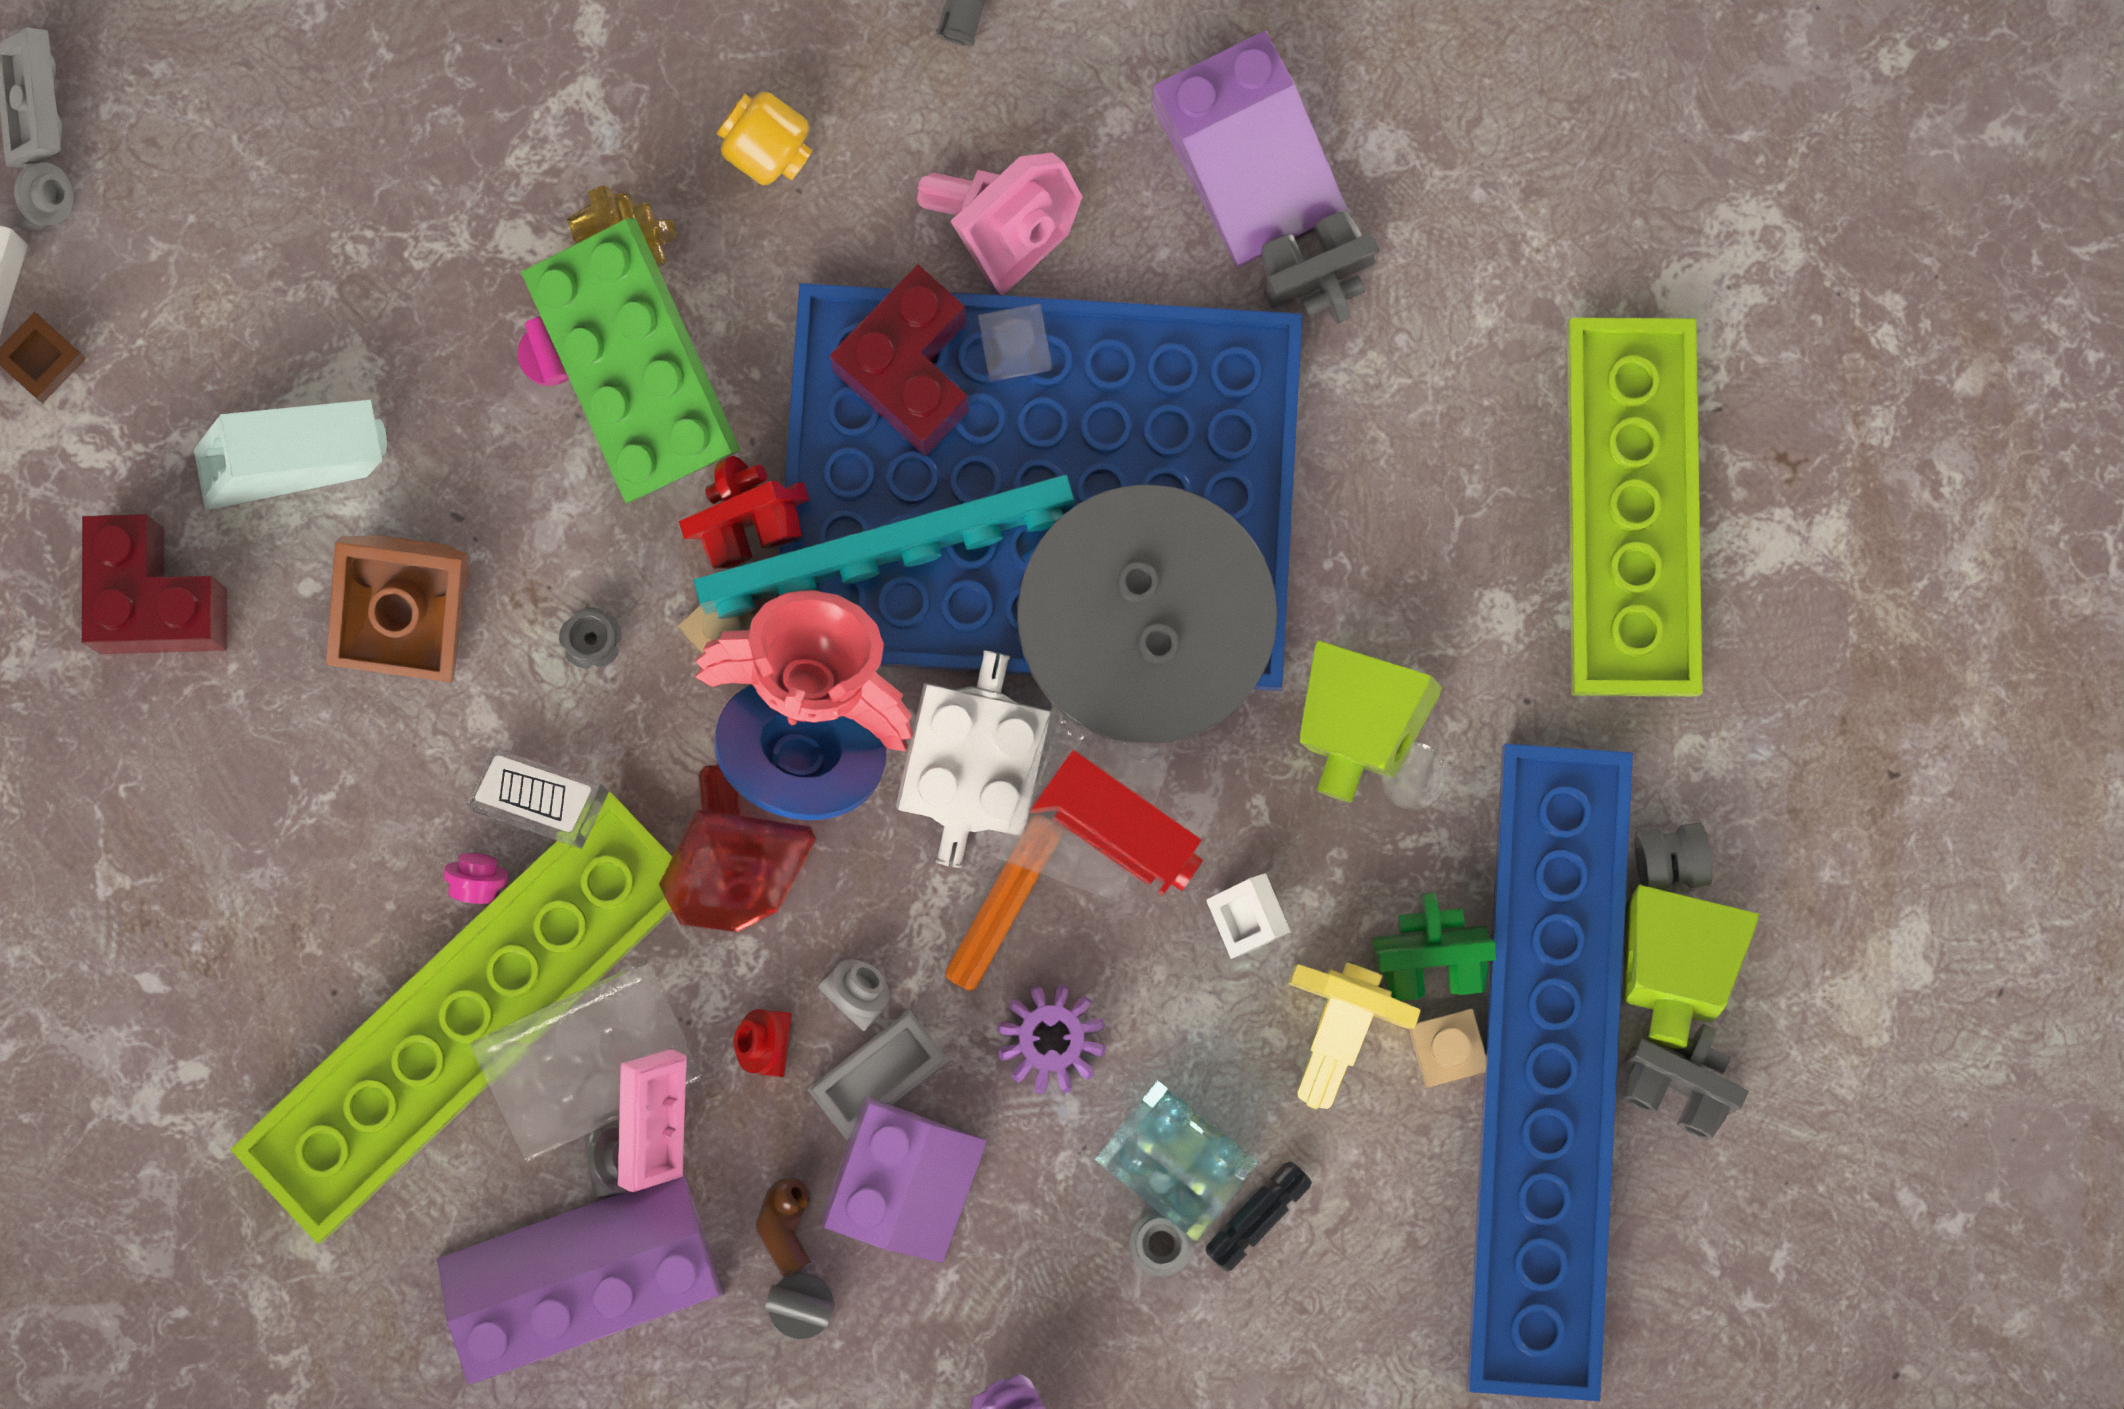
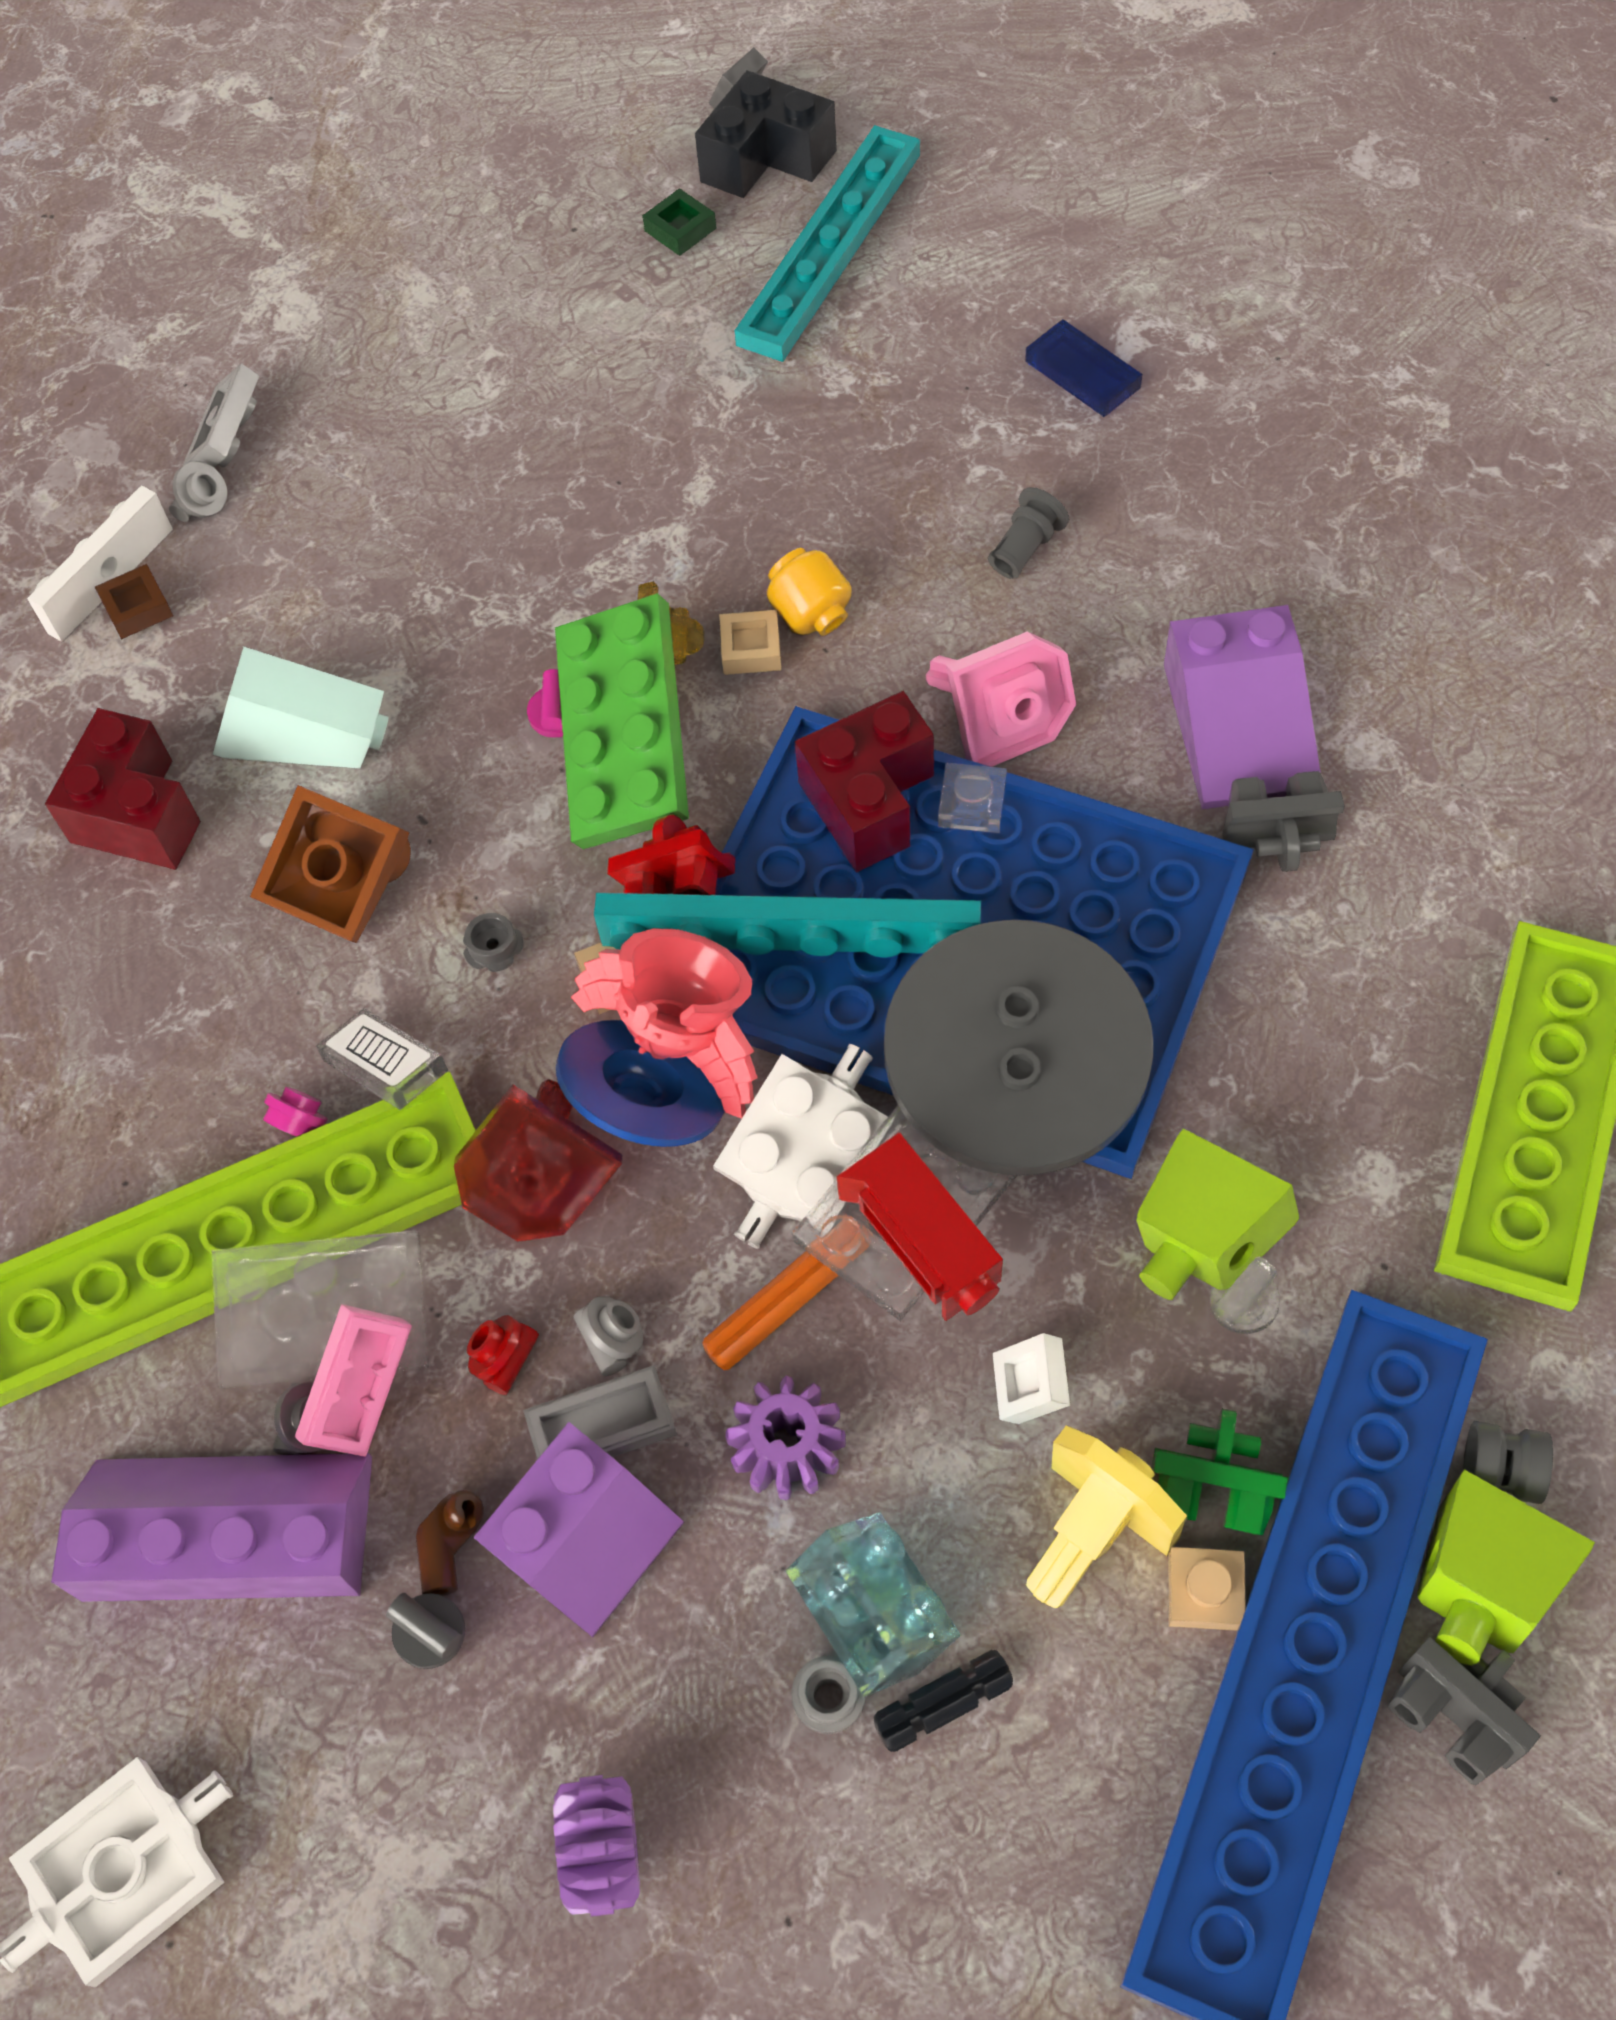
camera: 25 degrees right, 20 degrees down
(722, 214) = (750, 642): none -> tan plate

